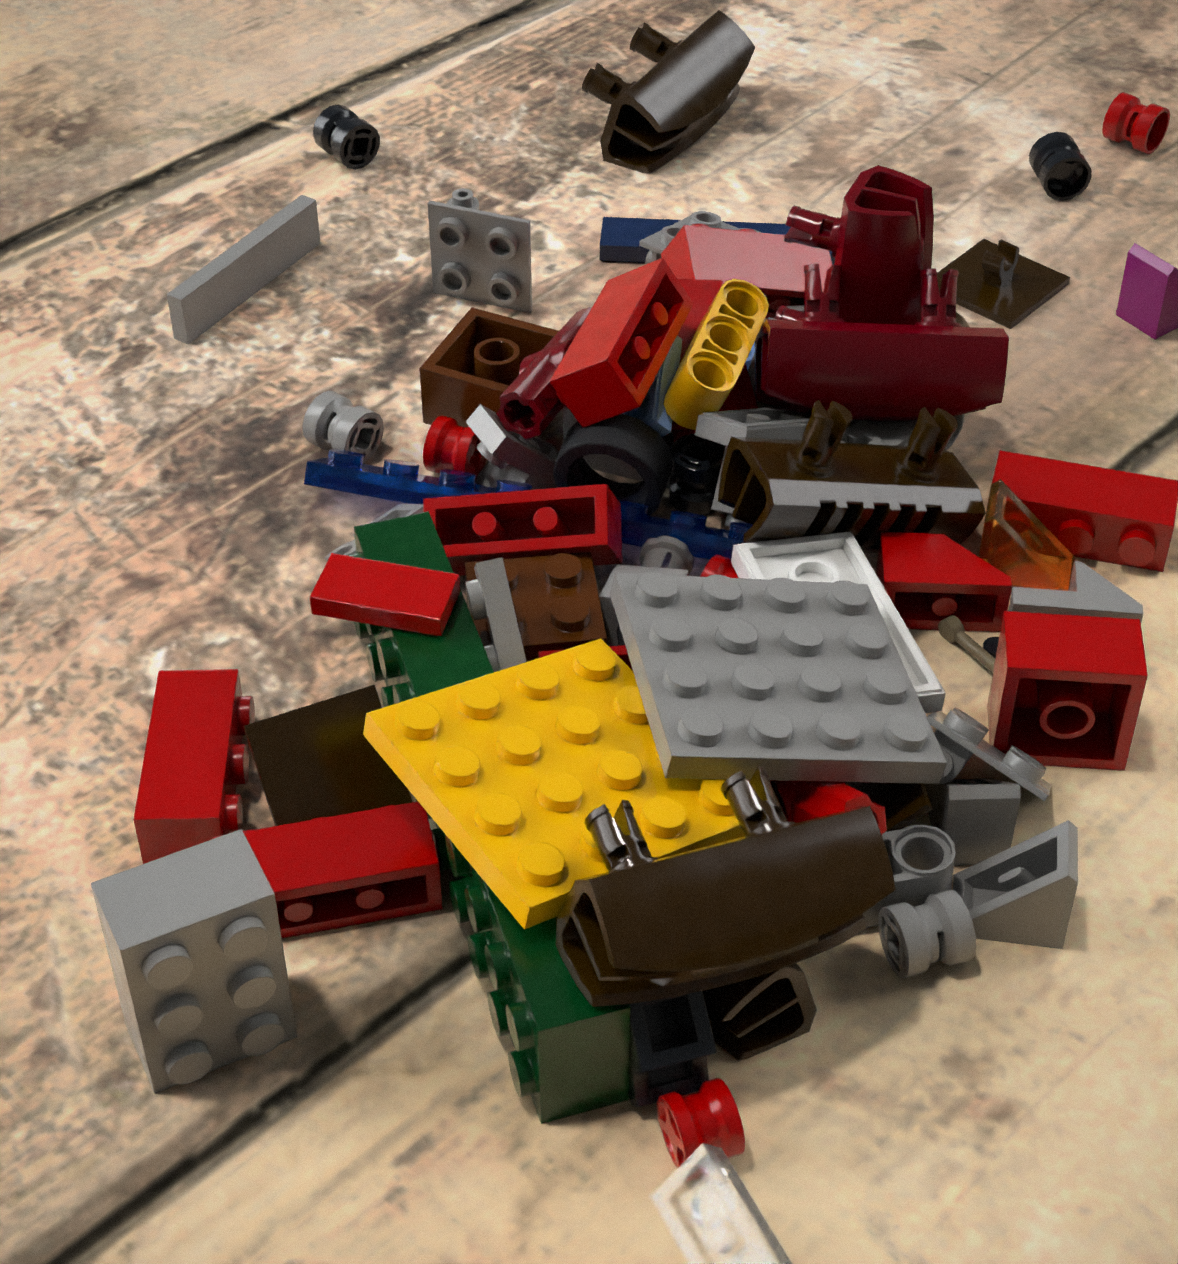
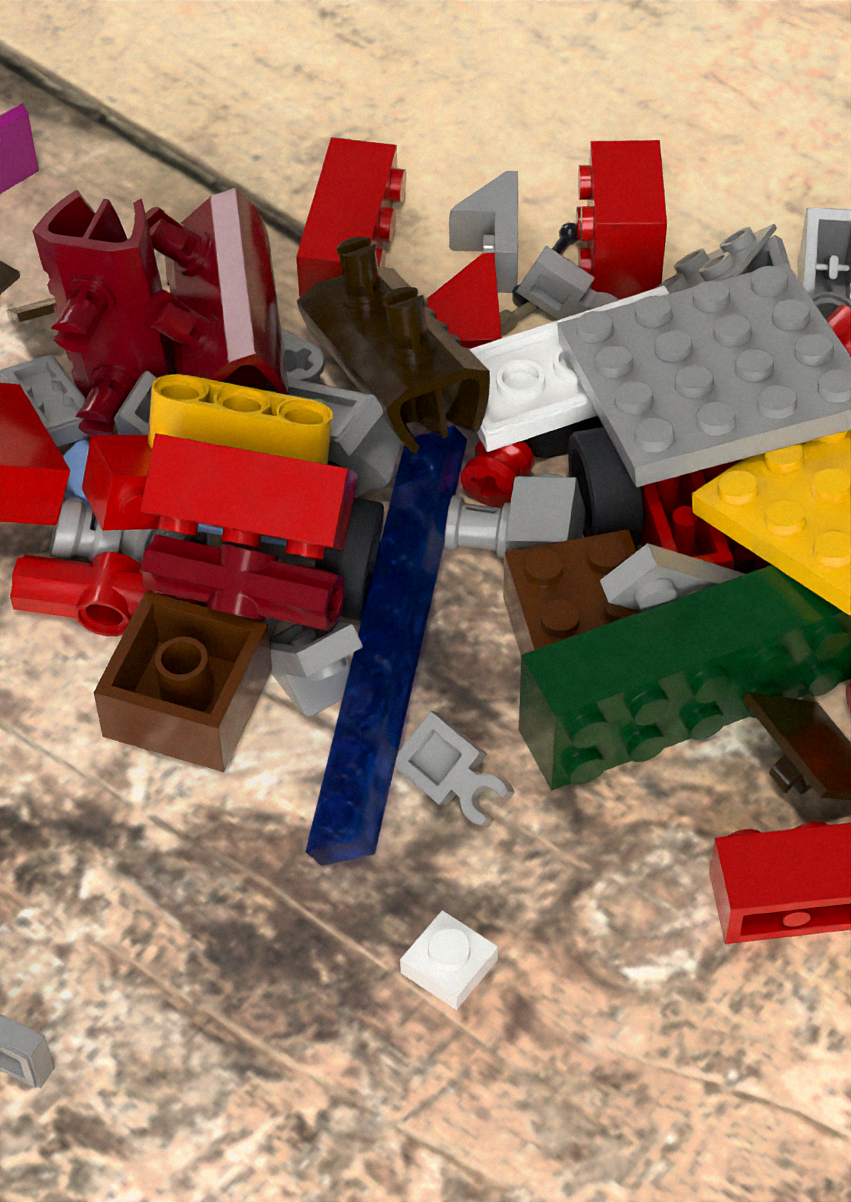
camera: 95 degrees left, 10 degrees up
(202, 536) = (449, 960): none -> white plate
(337, 424) = (261, 836): light grey wheel -> none
(385, 594) = (674, 662): red tile -> none
(452, 448) = (292, 719): red wheel -> none
(529, 524) = (468, 618): red brick -> none
(971, 653) = (561, 286): none -> light grey plate
(1022, 544) = (416, 261): clear orange slope -> none

